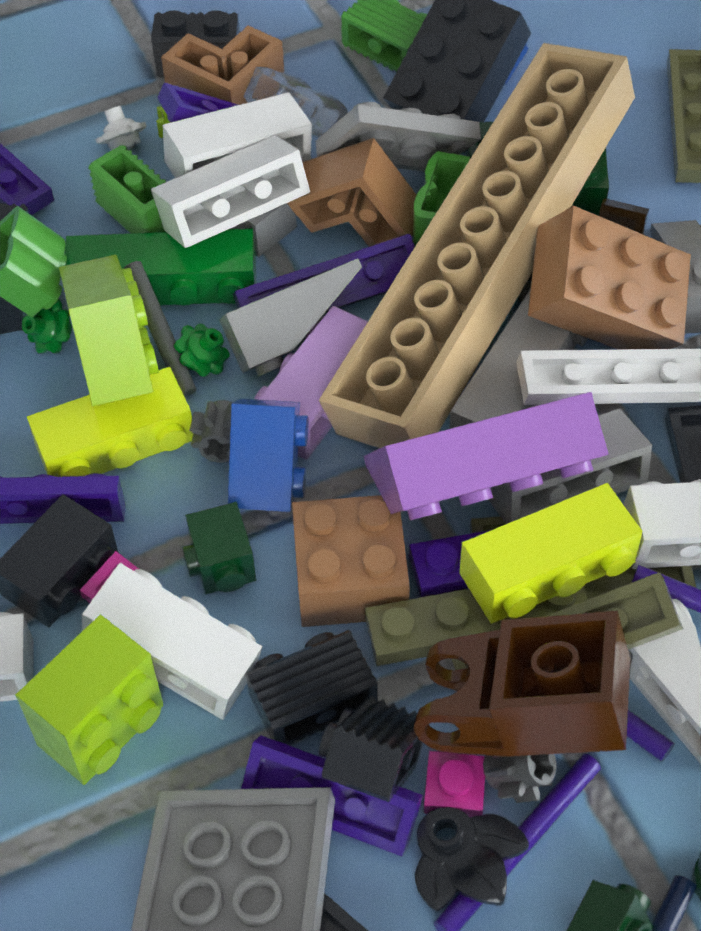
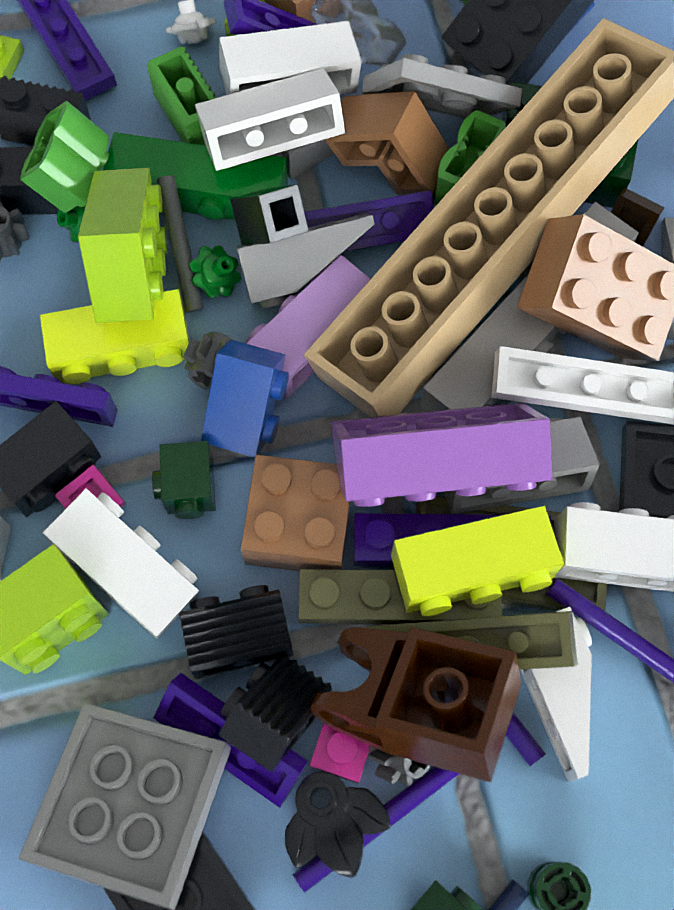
camera: 10 degrees right, 15 degrees up
(251, 275) = (269, 215): none -> black brick

